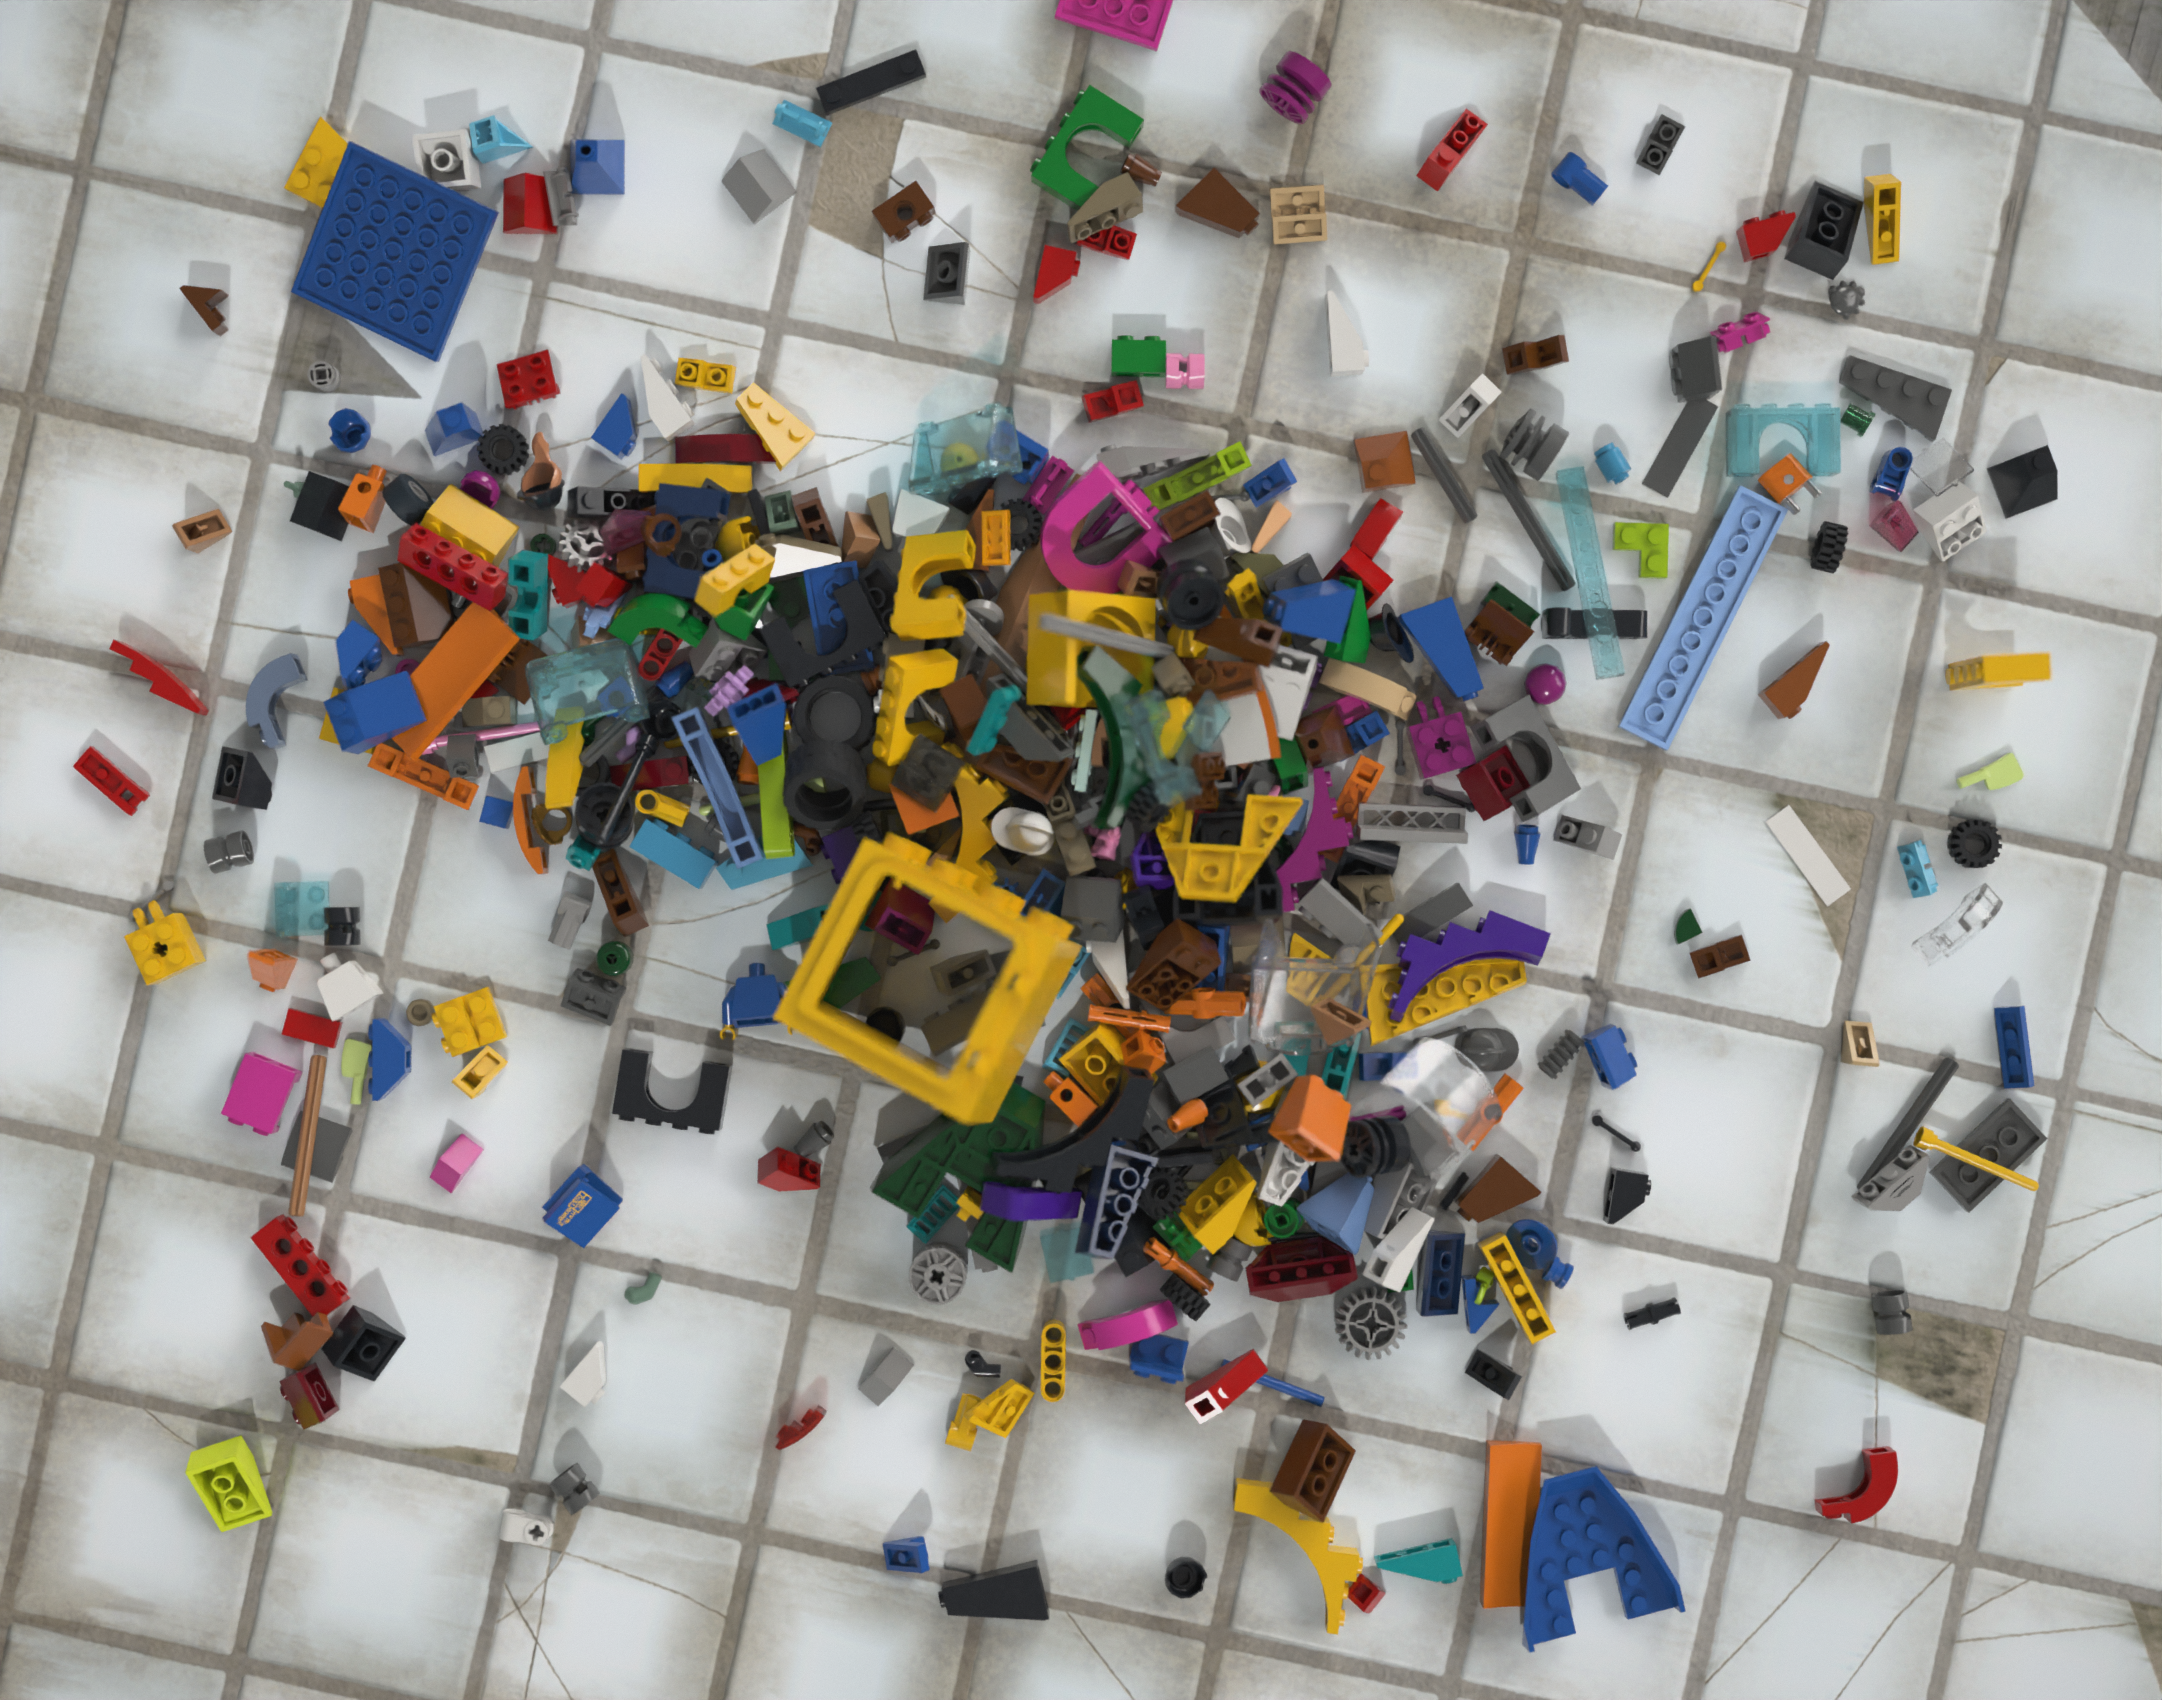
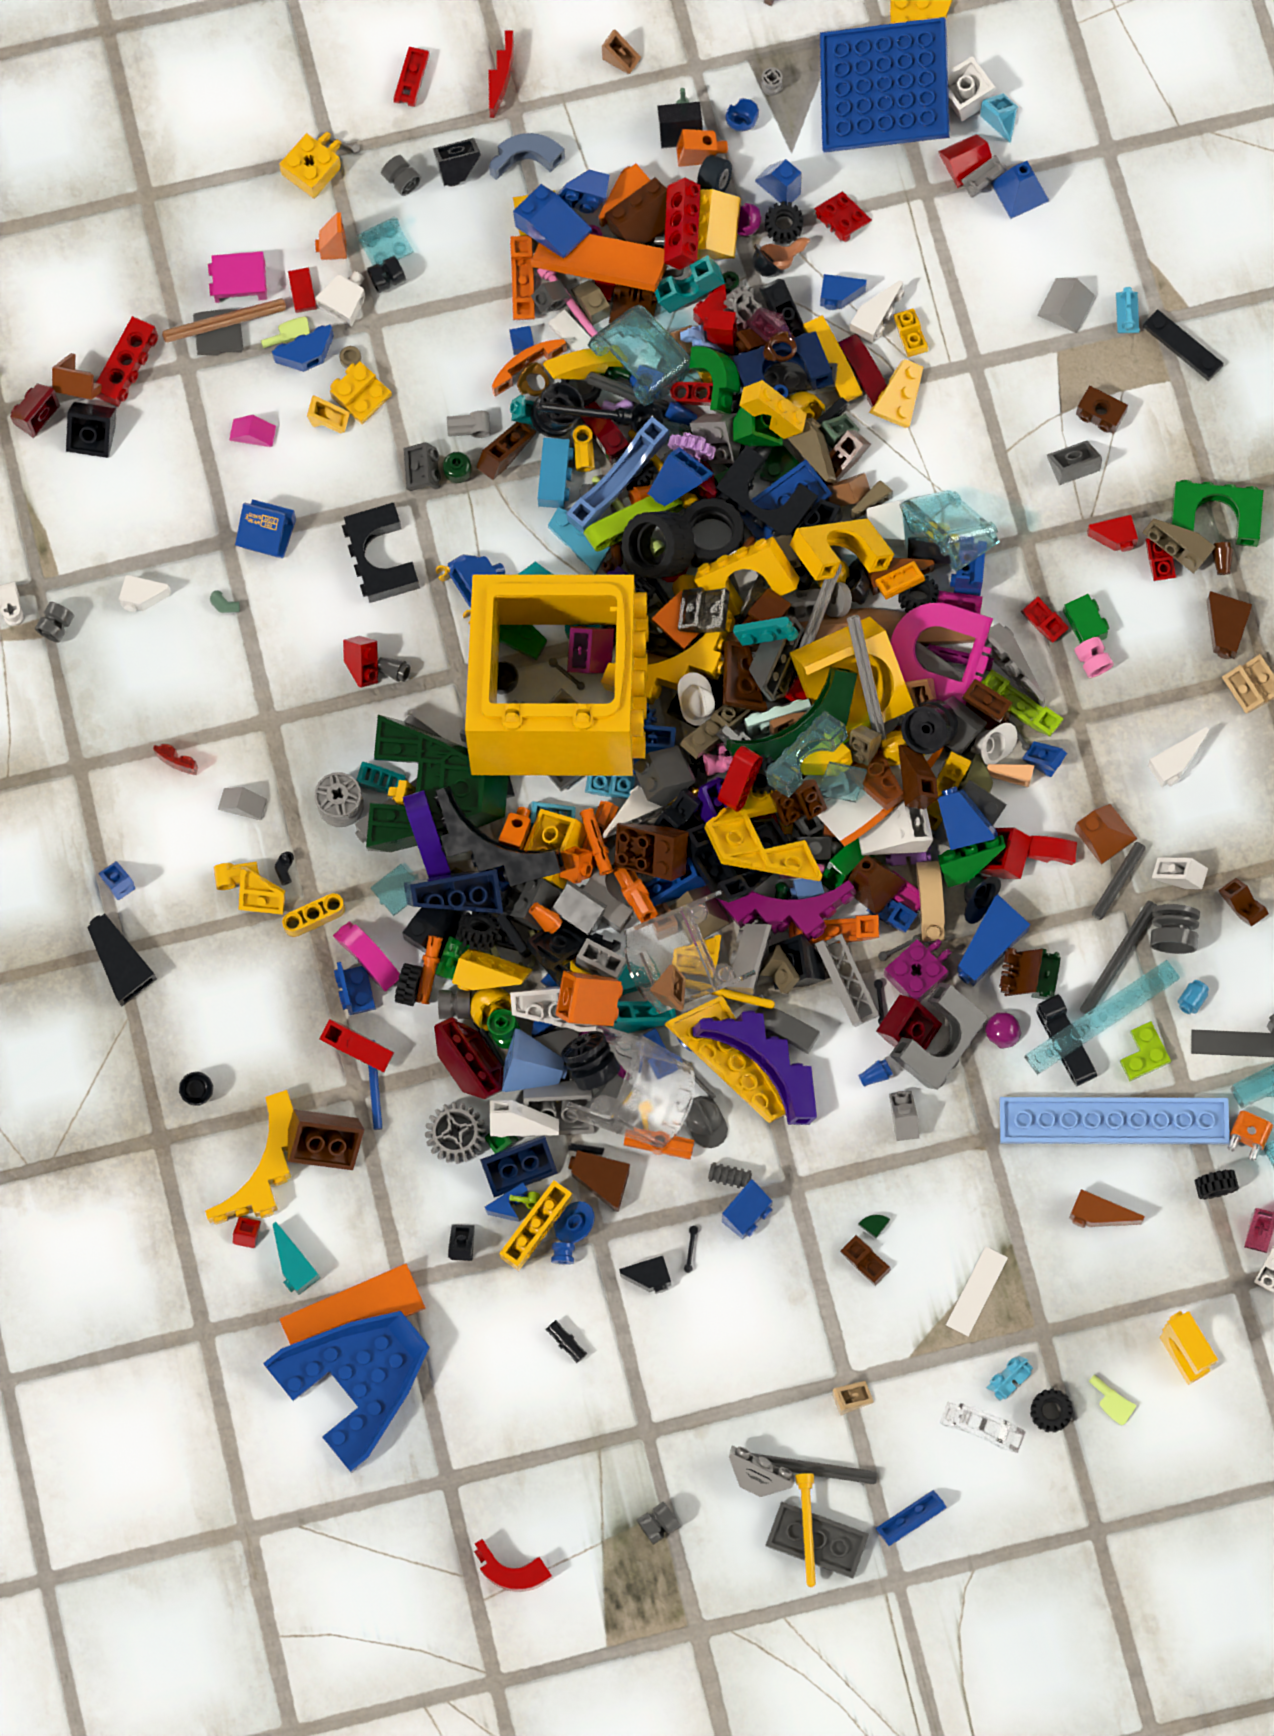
camera: 70 degrees right, 15 degrees down
(1151, 834) = (740, 778): none -> red beam

